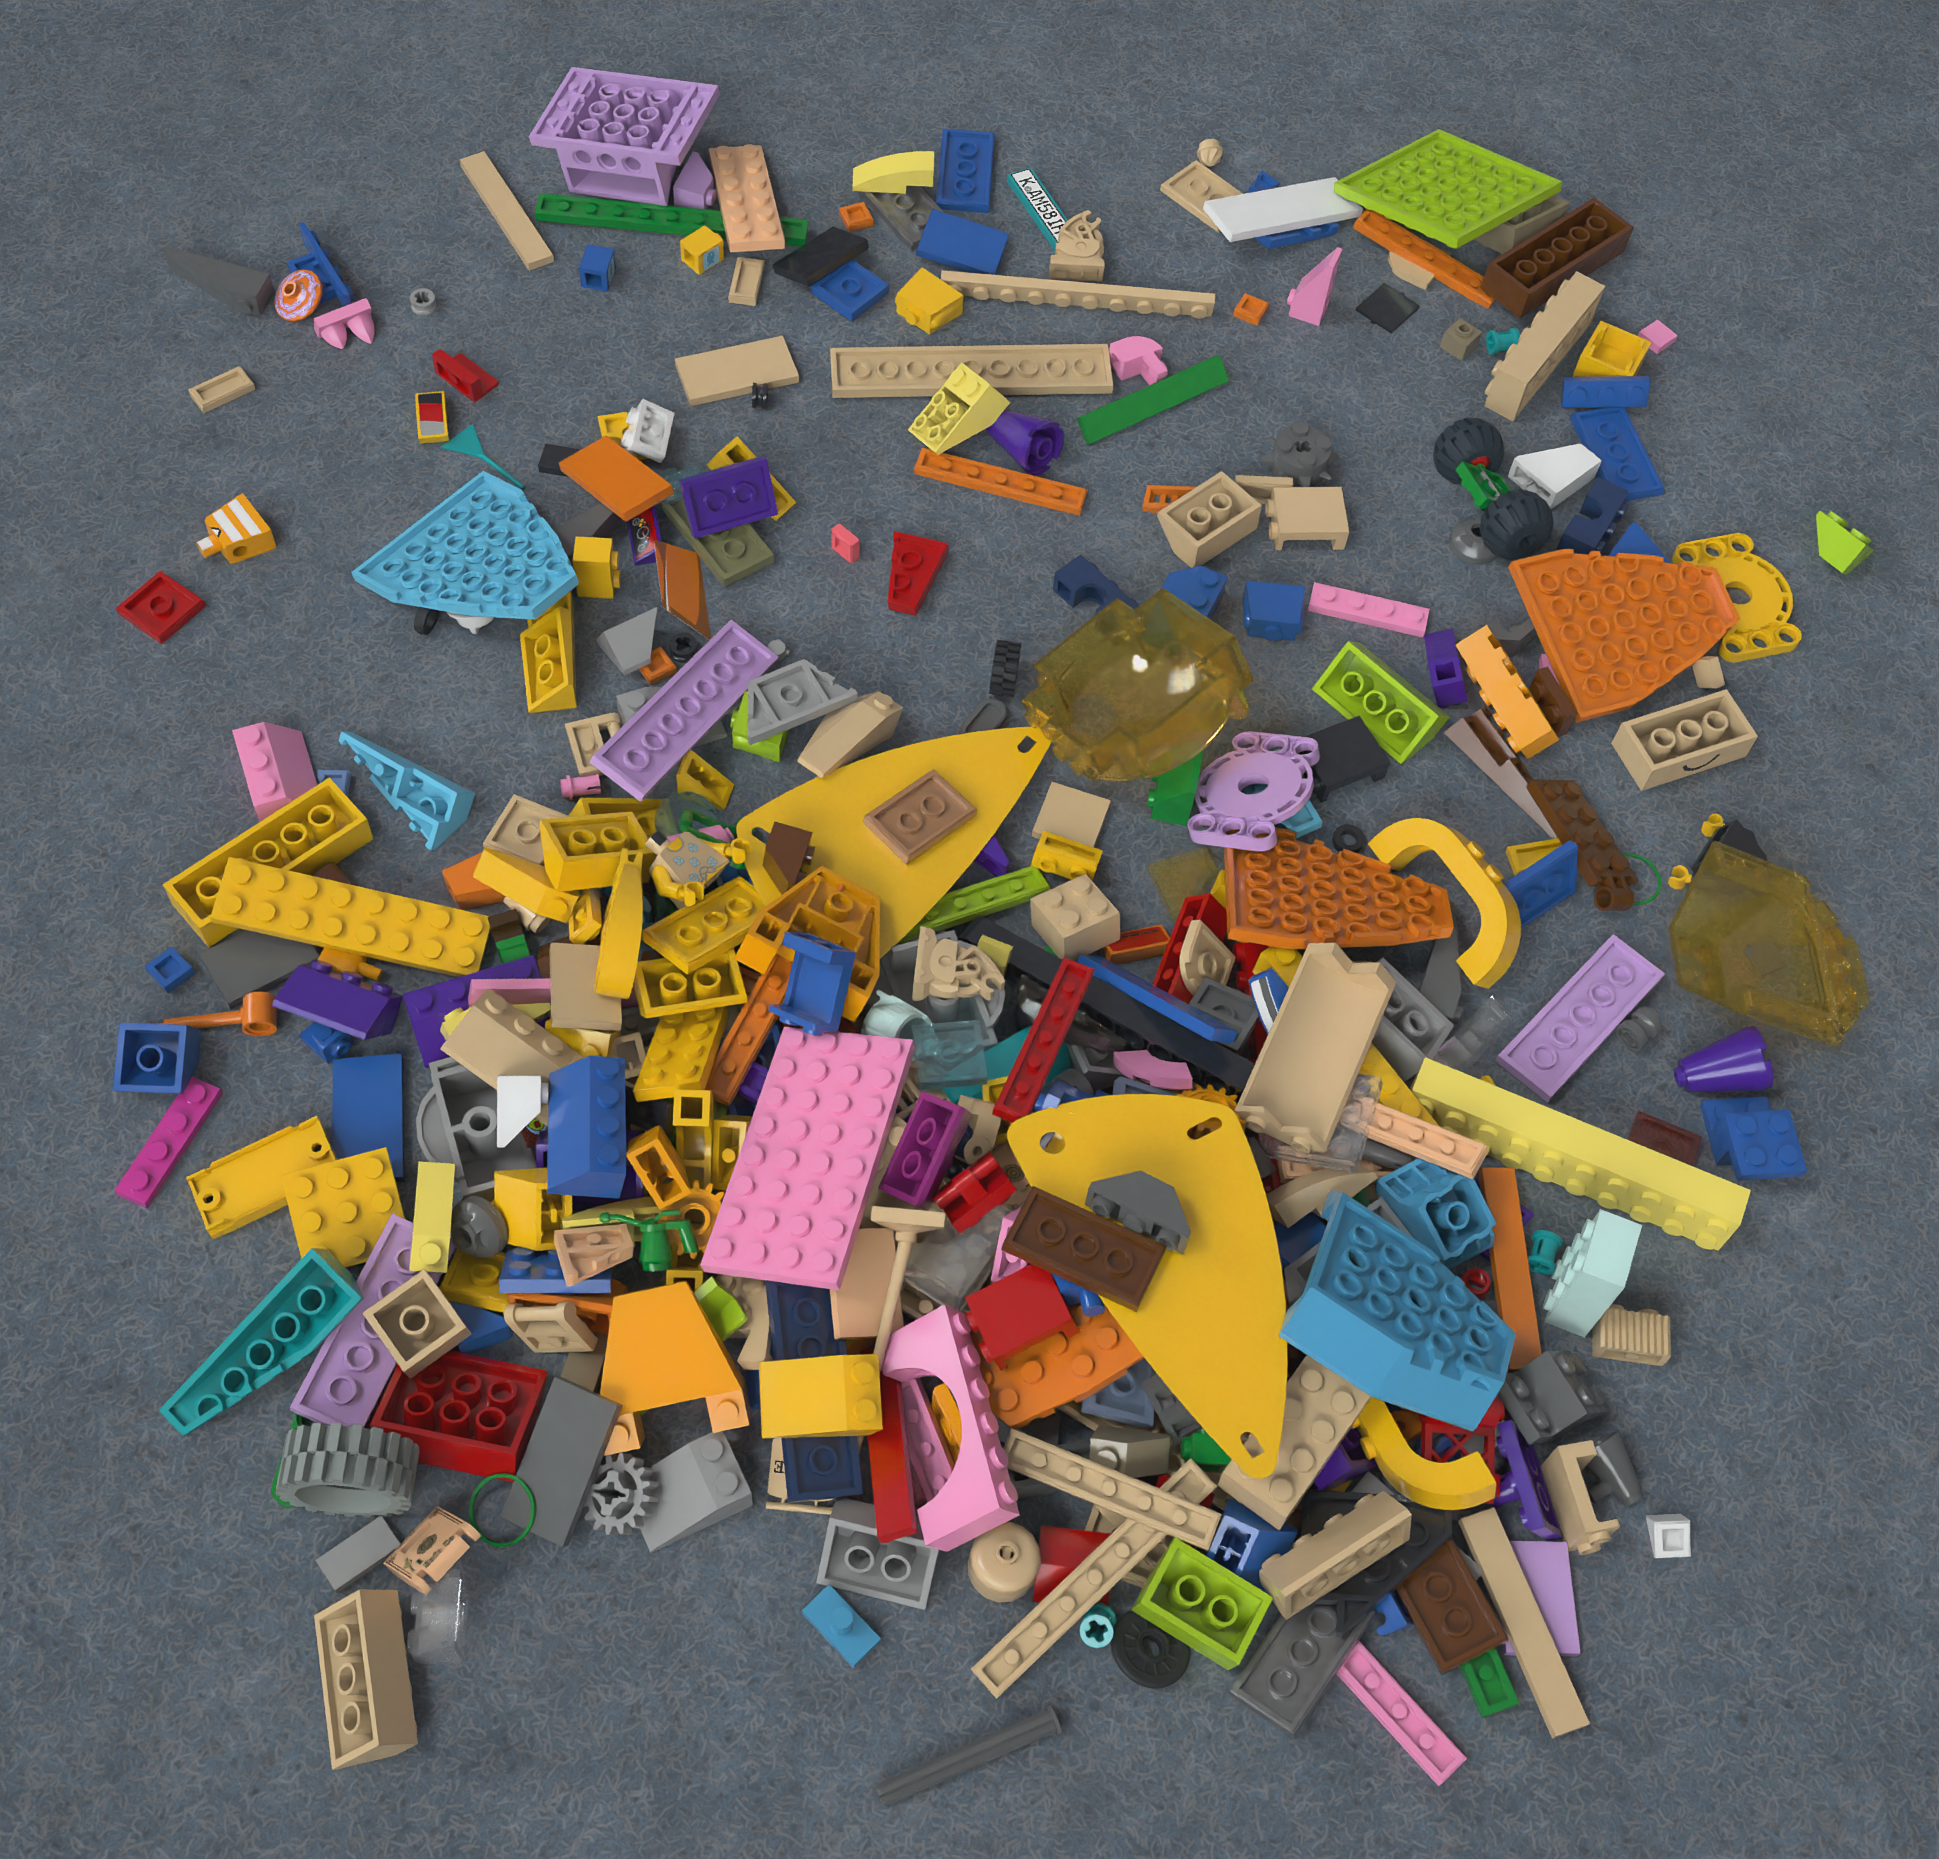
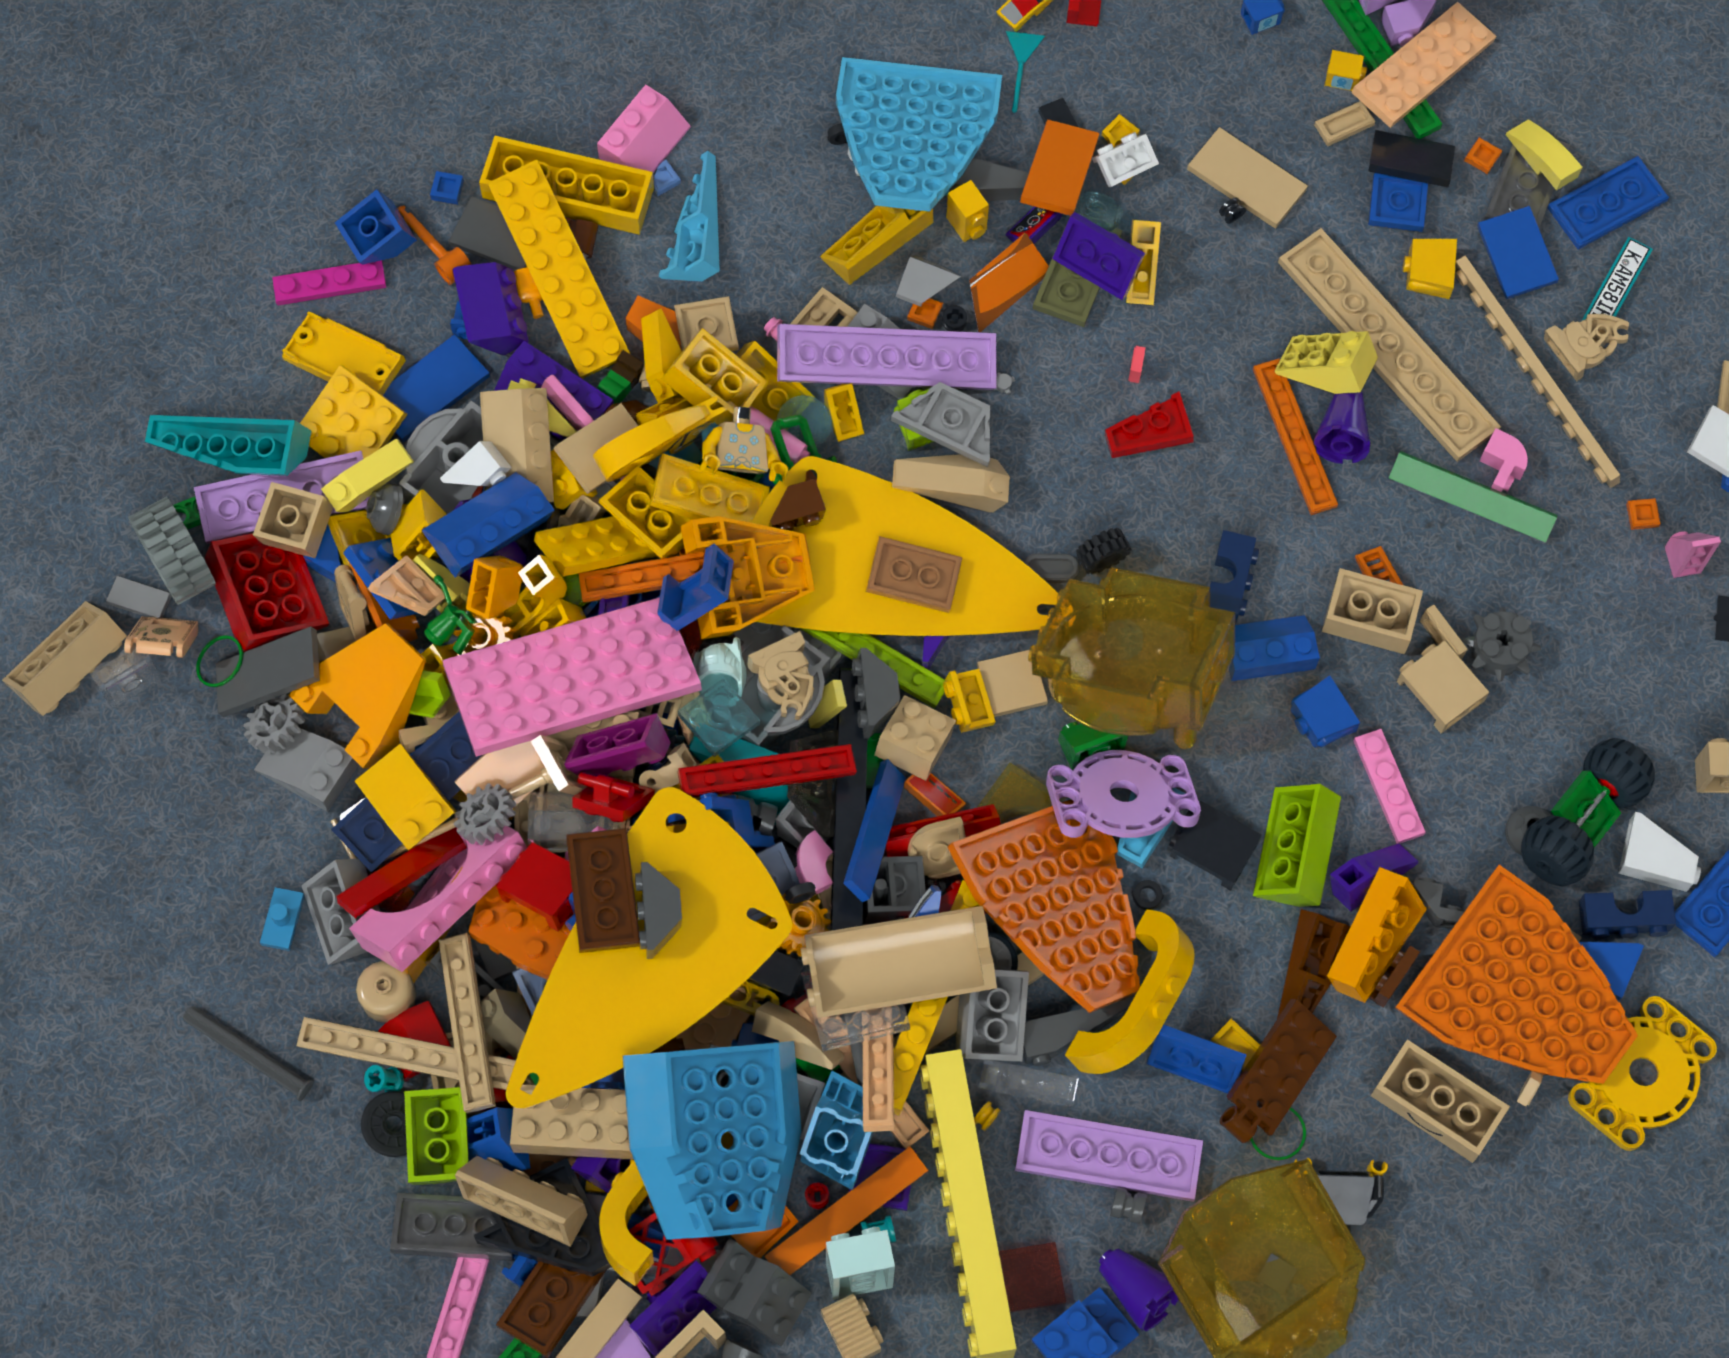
camera: 60 degrees right, 10 degrees up
(901, 1325) = (485, 814): none -> light grey gear
(1012, 916) = (875, 691): none -> dark grey slope
(1189, 1084) = (800, 892): none -> black piece

